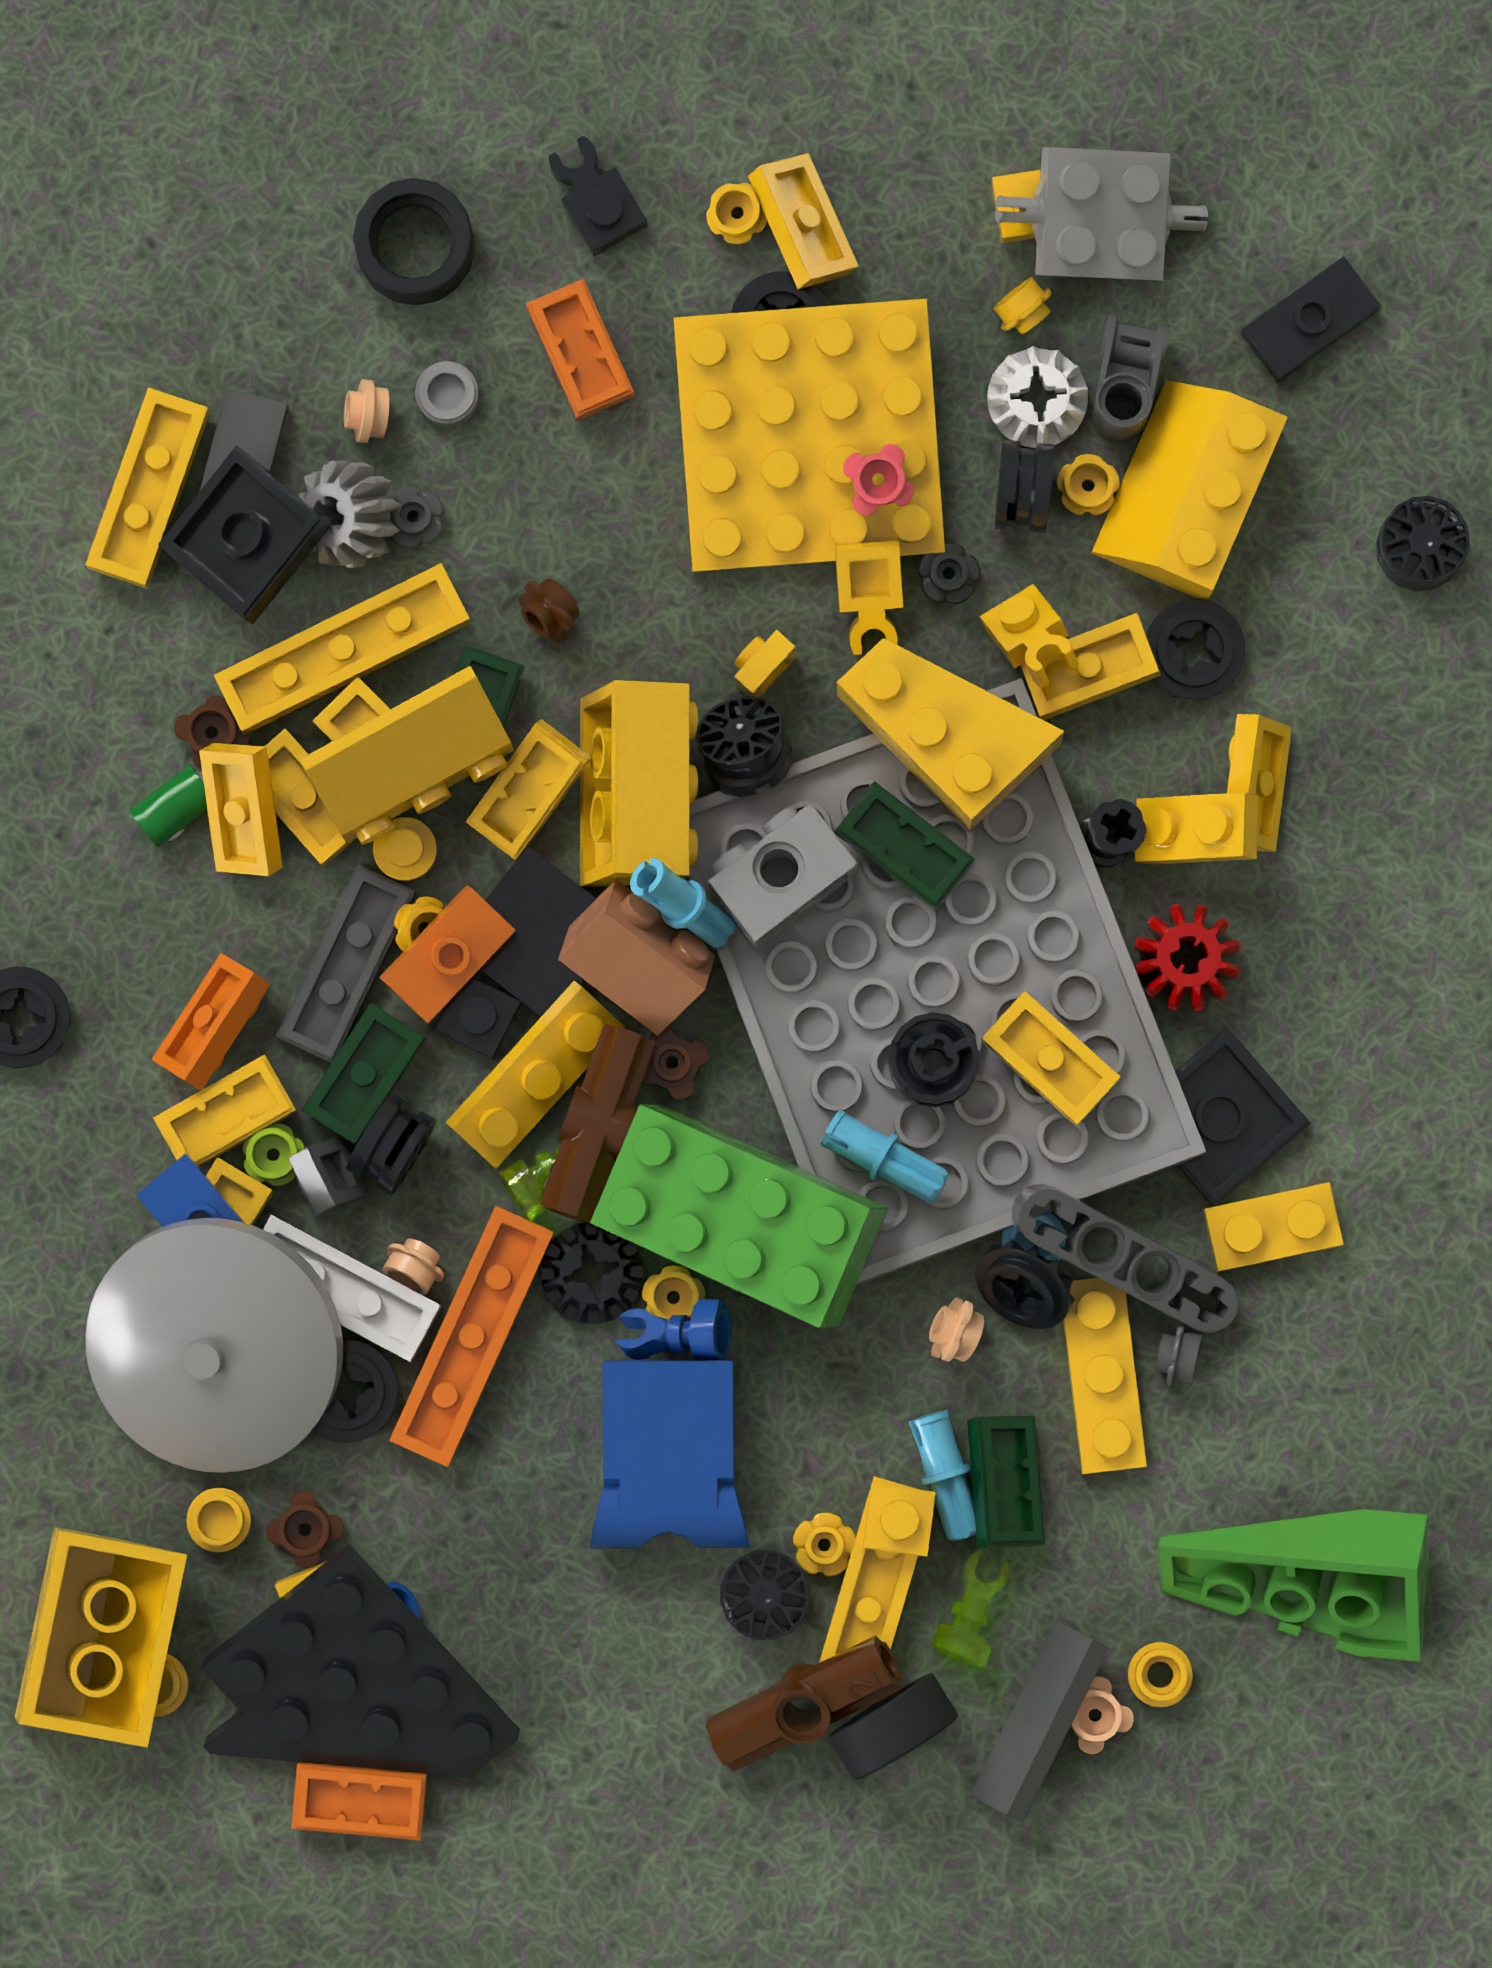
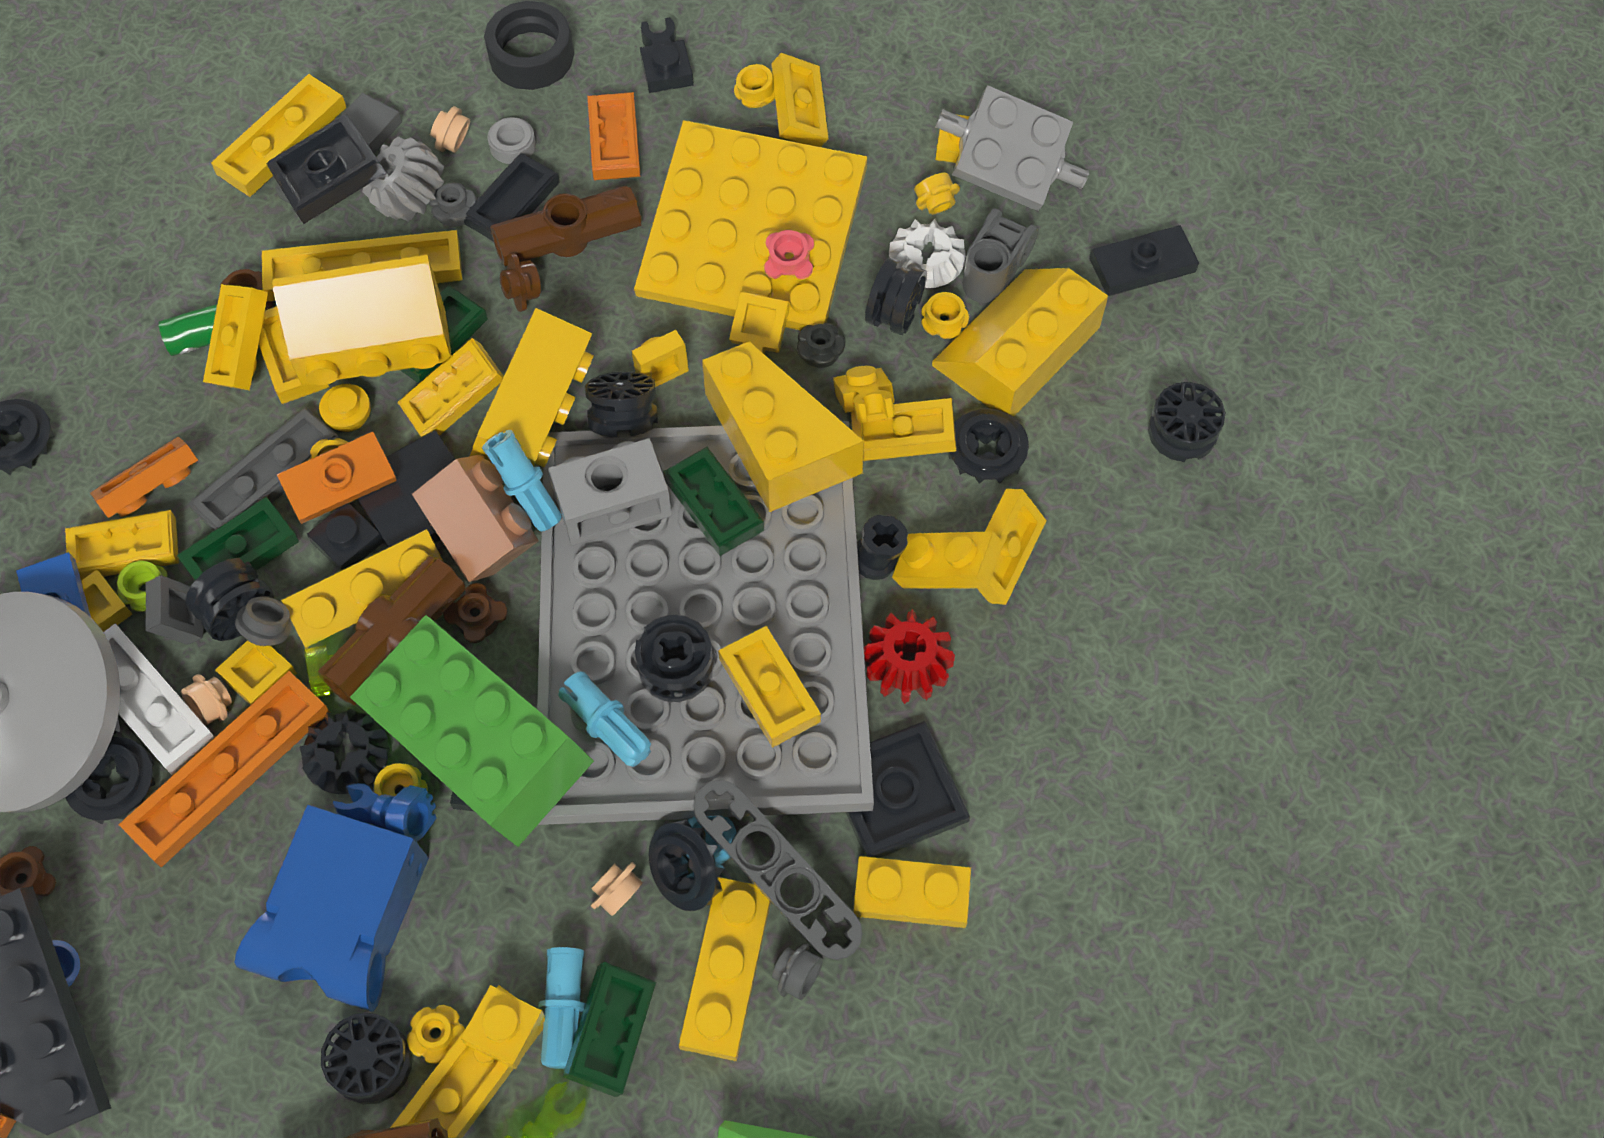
camera: 15 degrees right, 20 degrees down
(446, 1161) = (264, 621): none -> dark grey plate
(454, 1215) = (253, 670): none -> yellow plate
(483, 483) = (512, 194): none -> black tile
(604, 482) = (566, 225): none -> reddish brown piece

